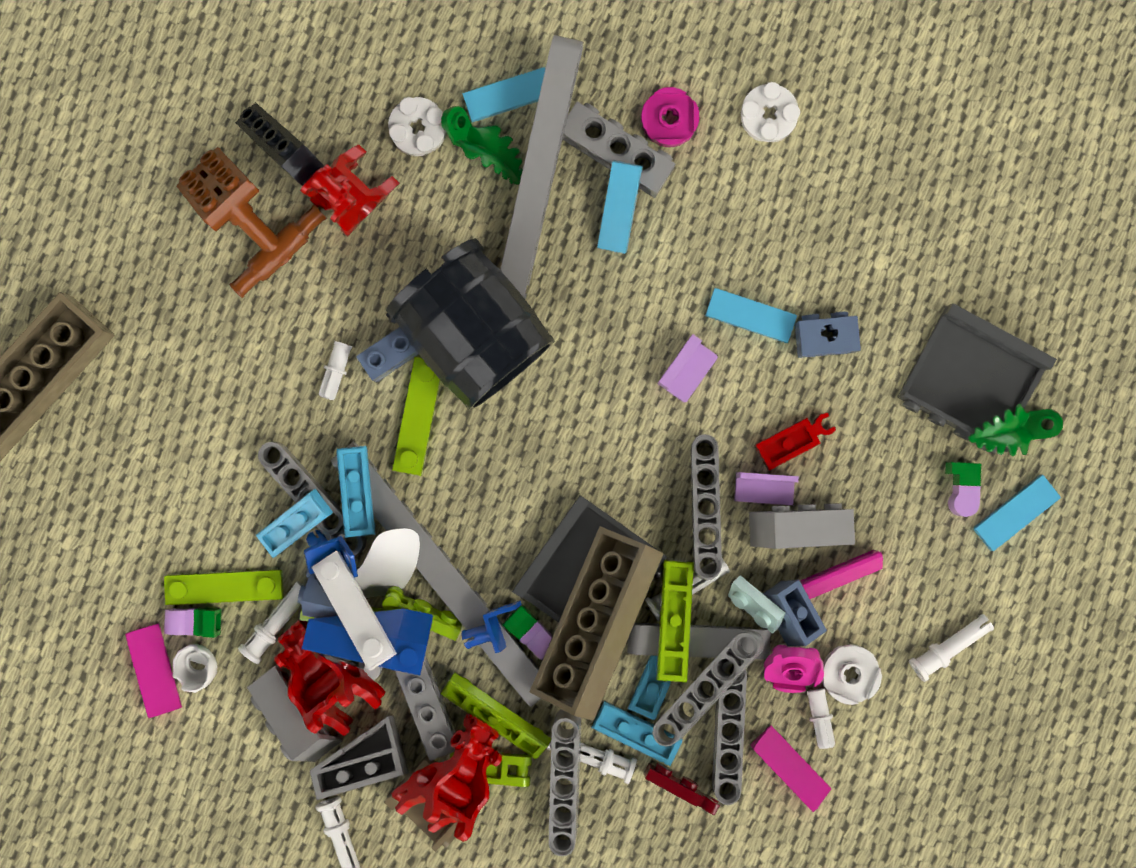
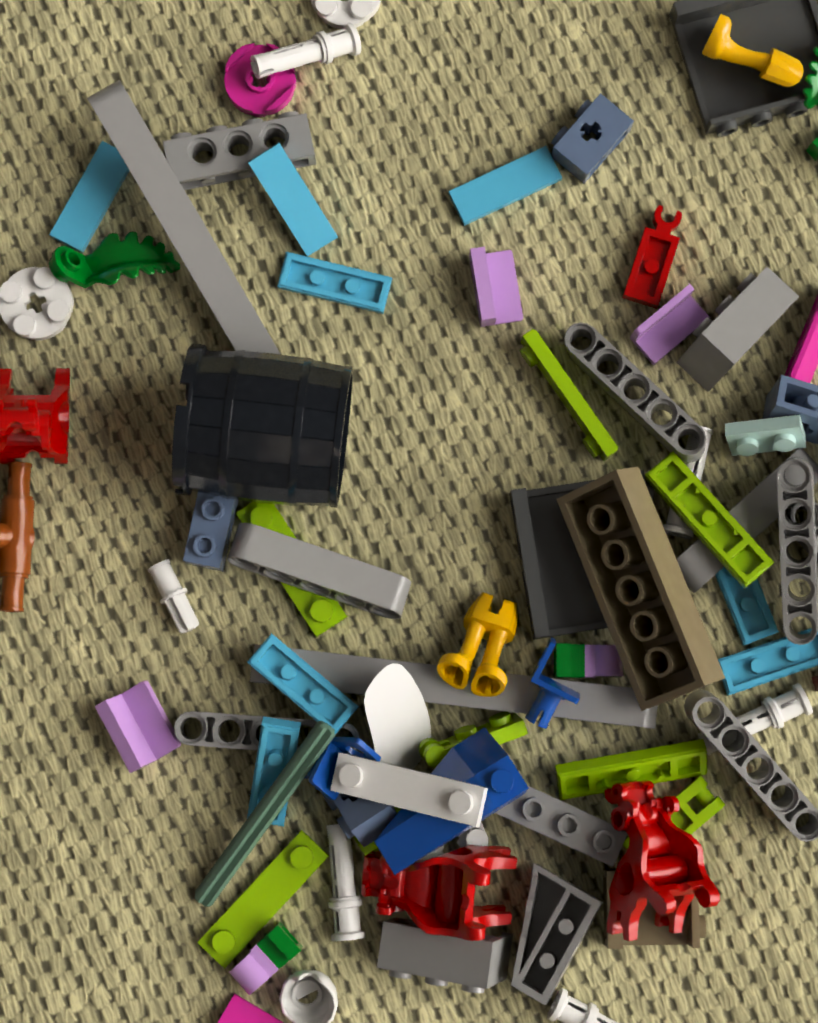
camera: 40 degrees left, 5 degrees down
(244, 424) = (138, 726): none -> lavender panel
(266, 542) = (264, 813): none -> sand green axle
(428, 435) = (319, 571): none -> light grey beam
(496, 567) = (479, 625): none -> yellow piece
(598, 277) = (334, 282): none -> medium azure tile
(673, 431) = (597, 438): none -> lime plate
(722, 133) = (320, 48): none -> white pin
(974, 398) = (773, 66): none -> yellow piece

